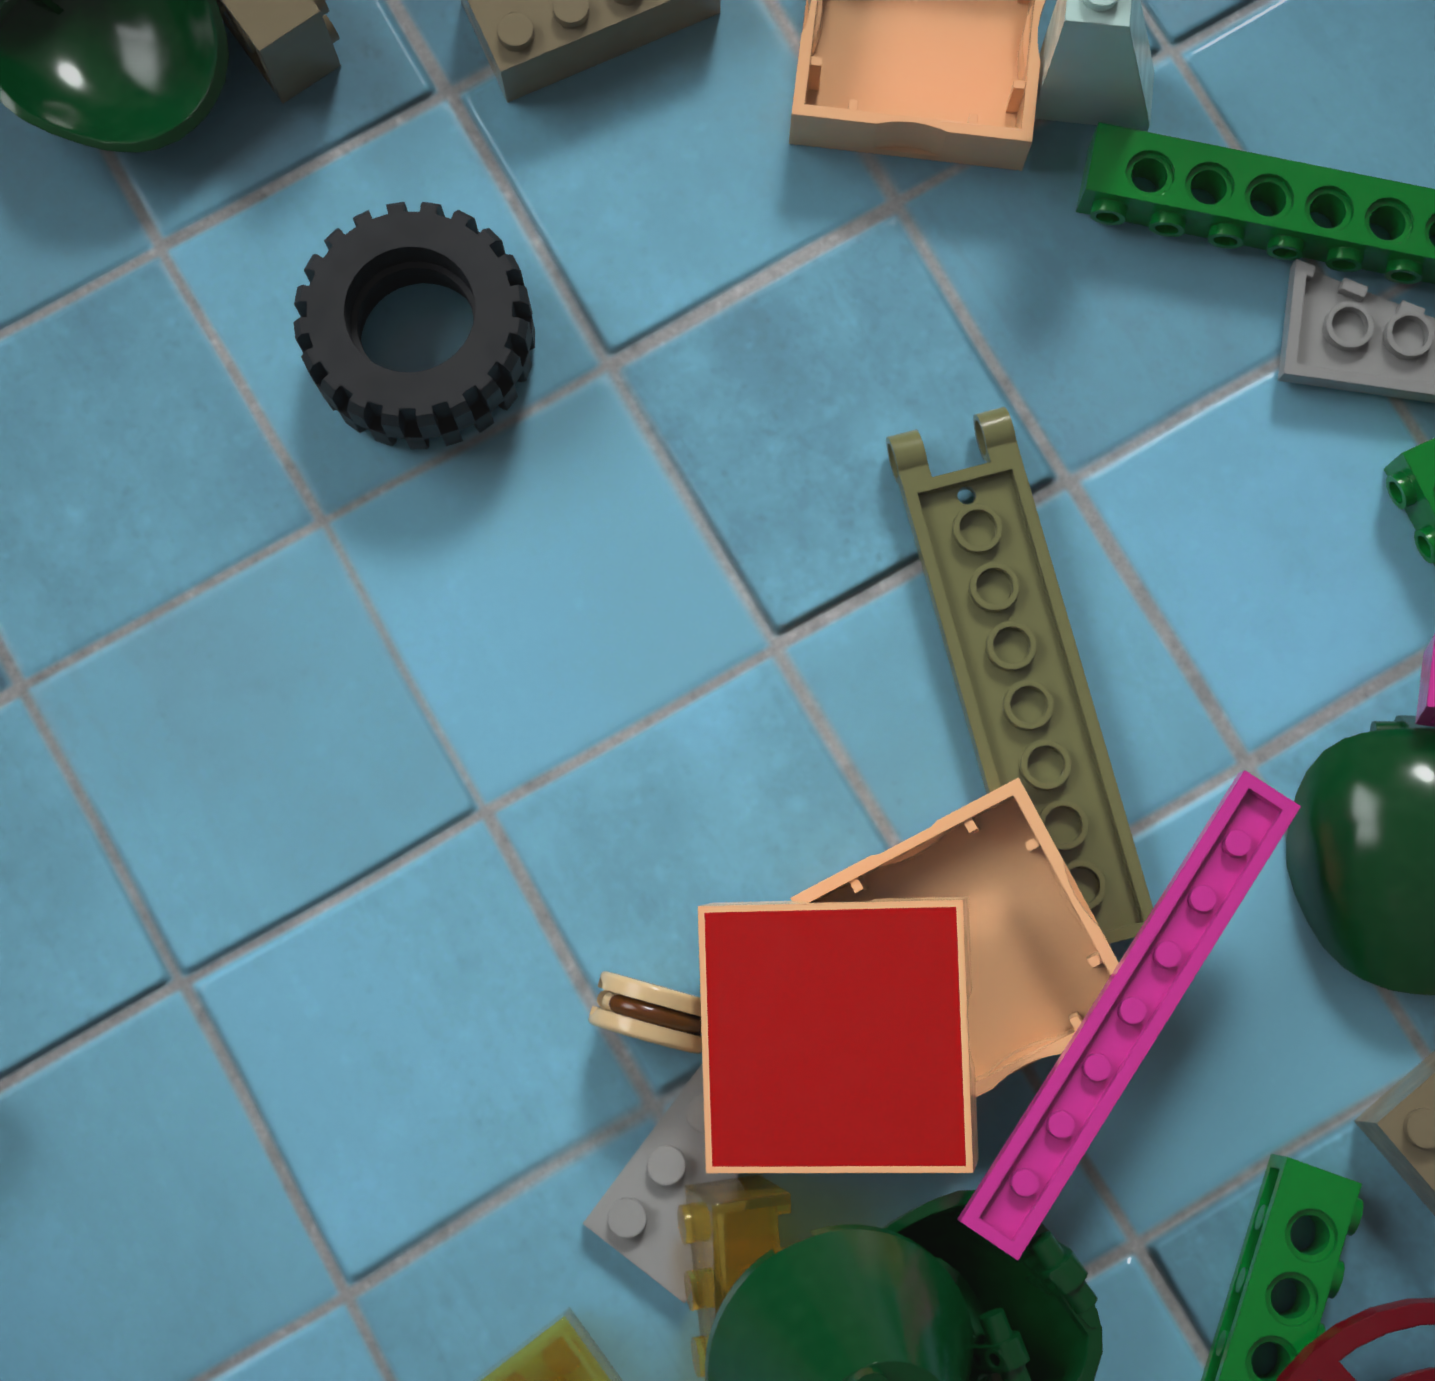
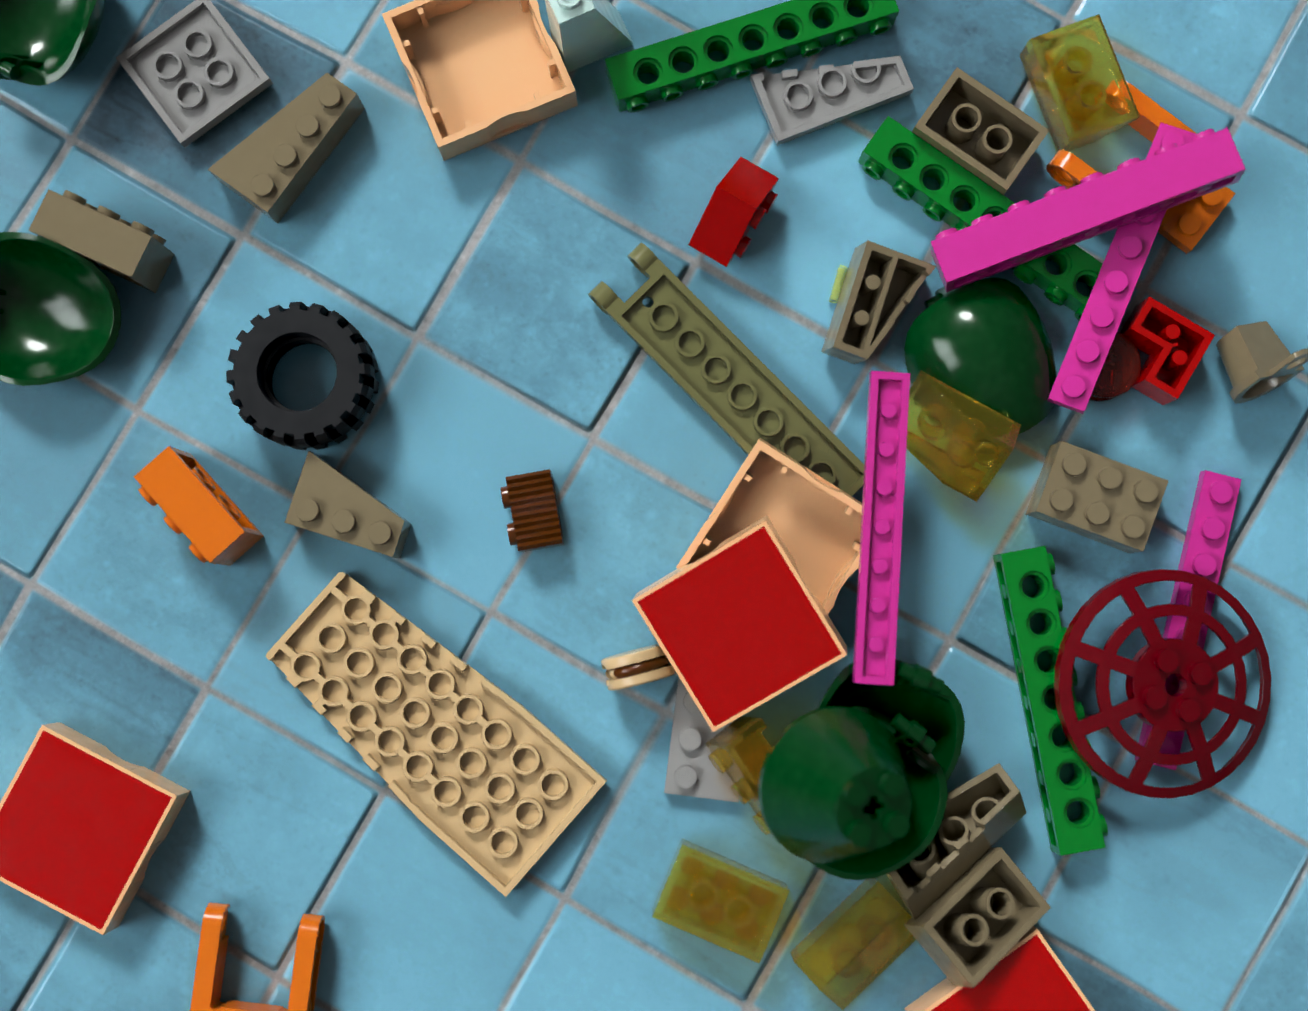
camera: 30 degrees left, 5 degrees up
(159, 423) = (197, 507): none -> orange brick
(307, 943) = (436, 731): none -> tan wing
(360, 544) = (343, 510): none -> dark tan wedge
(630, 700) = (533, 511): none -> reddish brown brick
(1164, 430) = (734, 207): none -> red brick
(1258, 625) = (840, 273): none -> yellowish green leg
(1298, 671) = (871, 299): none -> dark tan wedge
(1317, 944) = (957, 436): none -> clear yellow slope

